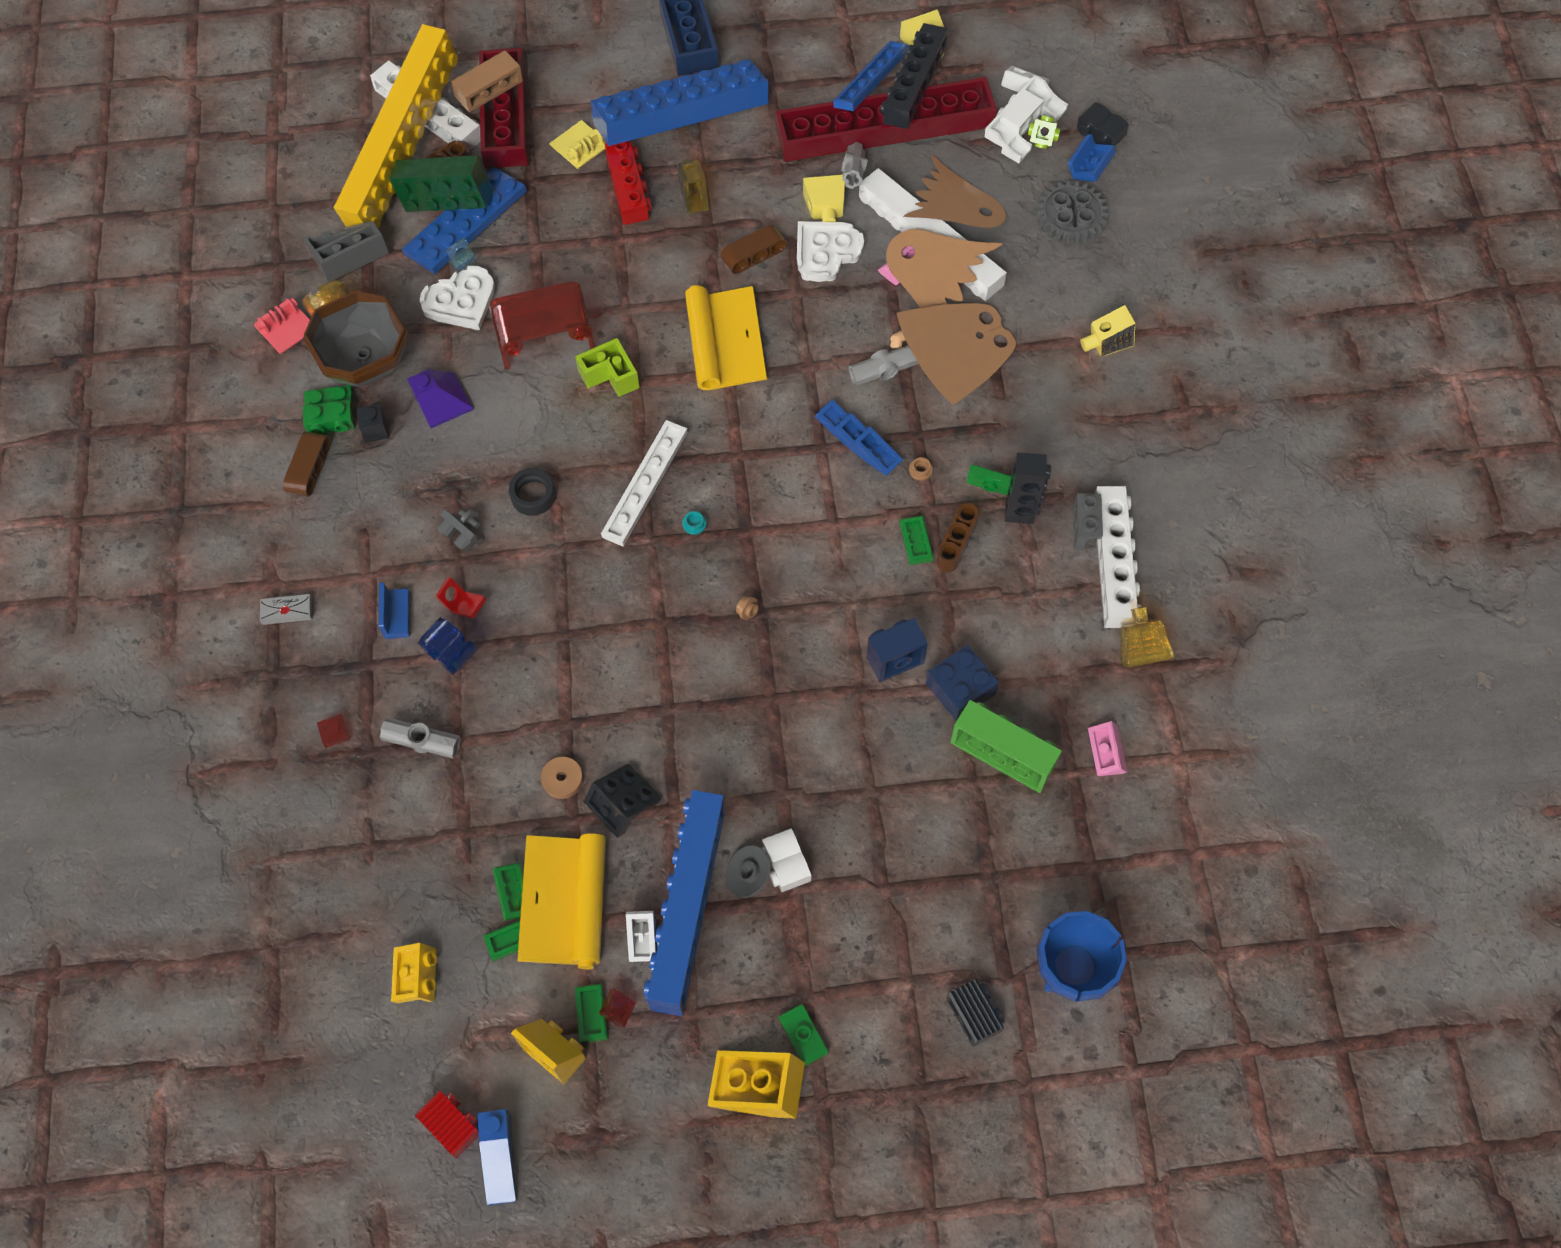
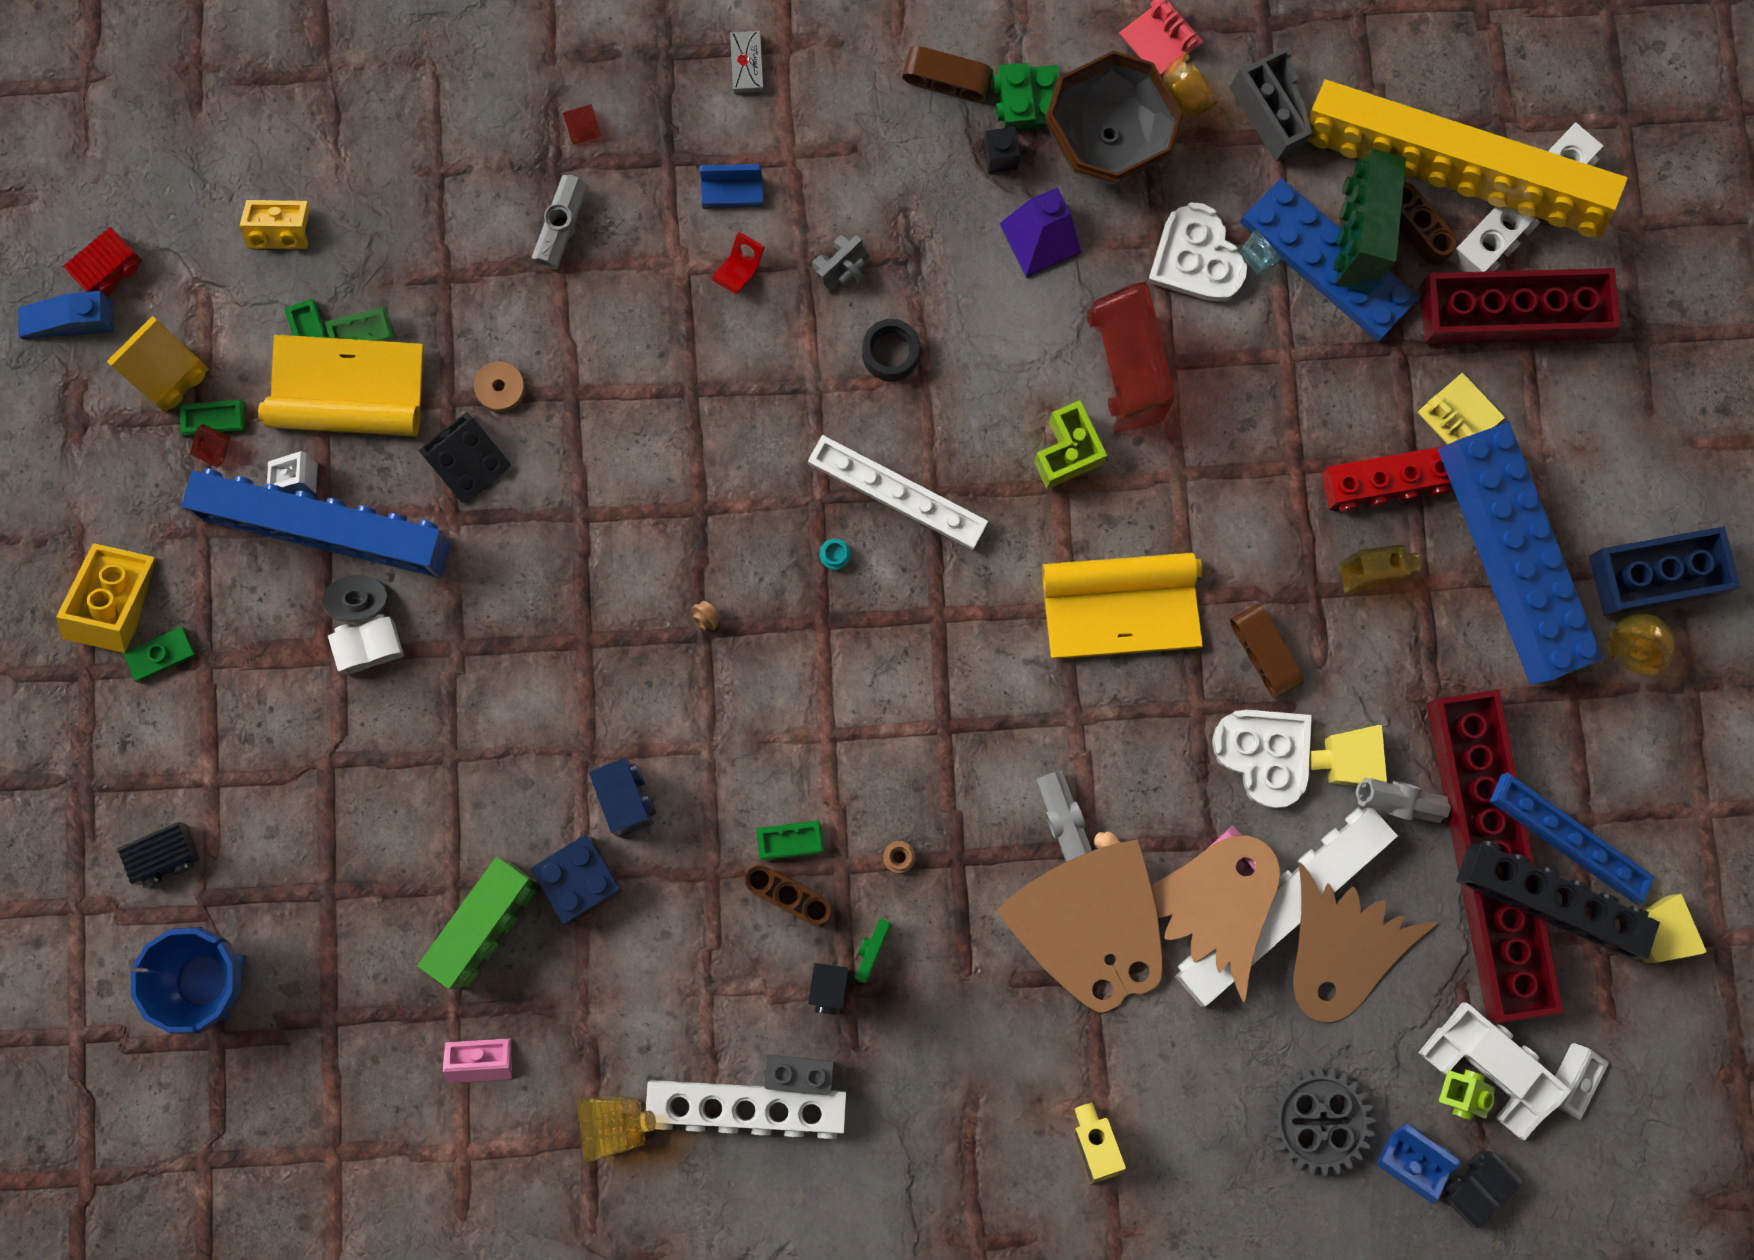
camera: 90 degrees right, 15 degrees up
(447, 645) = (672, 248): clear blue brick -> none
(487, 81) = (1548, 276): medium nougat brick -> none
(737, 41) = (1642, 642): none -> clear yellow cylinder
(858, 438) = (950, 776): blue slope -> none

